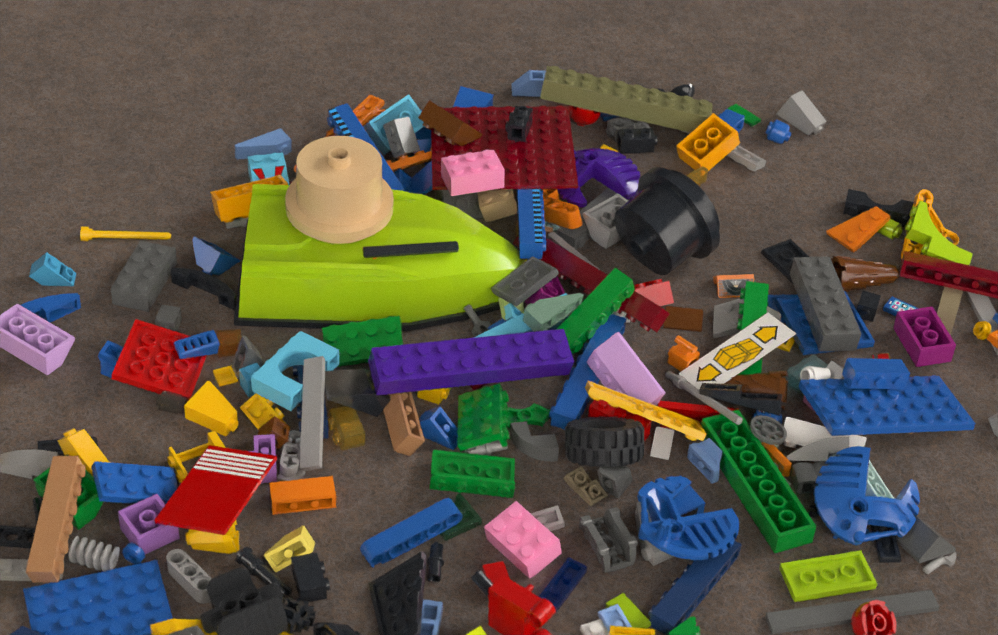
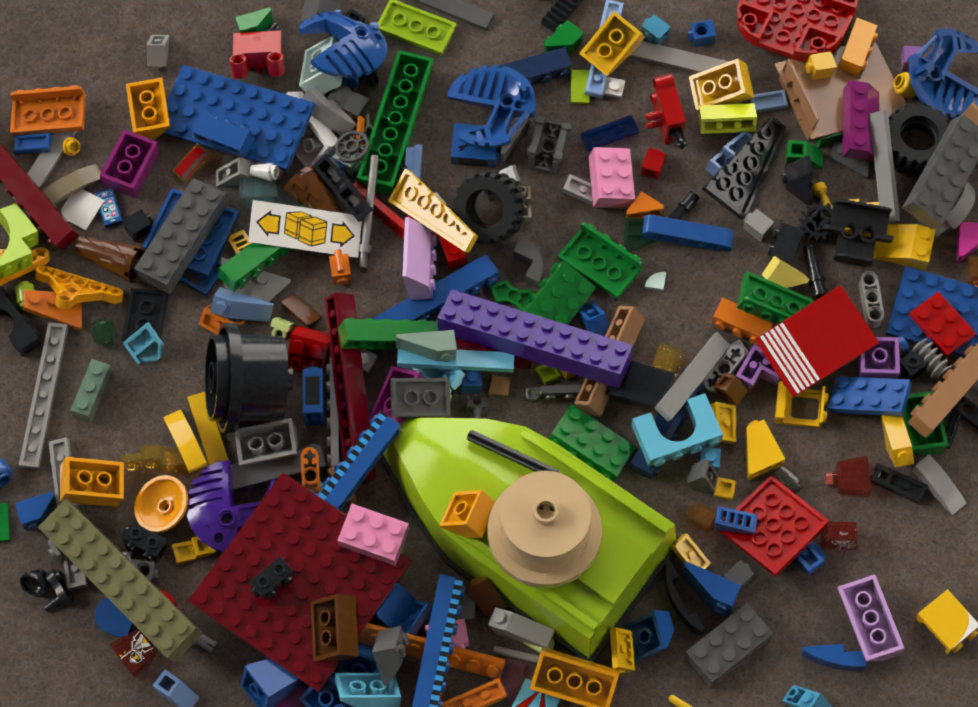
camera: 140 degrees left, 25 degrees up
(94, 380) = (840, 536): none -> clear red torso
(102, 586) = (942, 324): none -> red plate
(113, 534) = (911, 366): none -> black brick
(114, 429) = (851, 477): none -> clear red torso
(187, 292) = (713, 589): none -> blue slope
(219, 312) = (689, 551): none -> yellow plate
(228, 232) = (622, 650): none -> yellow bracket
(281, 509) = (769, 299): none -> green bracket
(350, 581) = (758, 224): none -> light grey brick
(409, 490) = (656, 282): none -> light aqua tile
(410, 196) = (468, 513): none -> light orange slope
(470, 538) = (643, 206): none -> orange slope
(609, 255) = (313, 396): none -> blue brick
(646, 158) = (155, 498): none -> light orange dish
(686, 299) = (283, 325): none -> yellowish green tile
(729, 290) = (240, 306): none -> medium blue slope
(768, 238) = (145, 345): none -> medium azure slope
(772, 197) = (91, 391): none -> sand green brick
(801, 183) = (43, 396): none -> light grey plate
(808, 233) = (103, 332): none -> clear green head
(868, 240) = (76, 289): none -> light orange beam
(921, 299) = (81, 208): none -> white sticker
(930, 461) = (258, 51): none -> red piece
(960, 489) = (255, 21): none -> slope
(962, 373) = (148, 108): none -> light orange slope

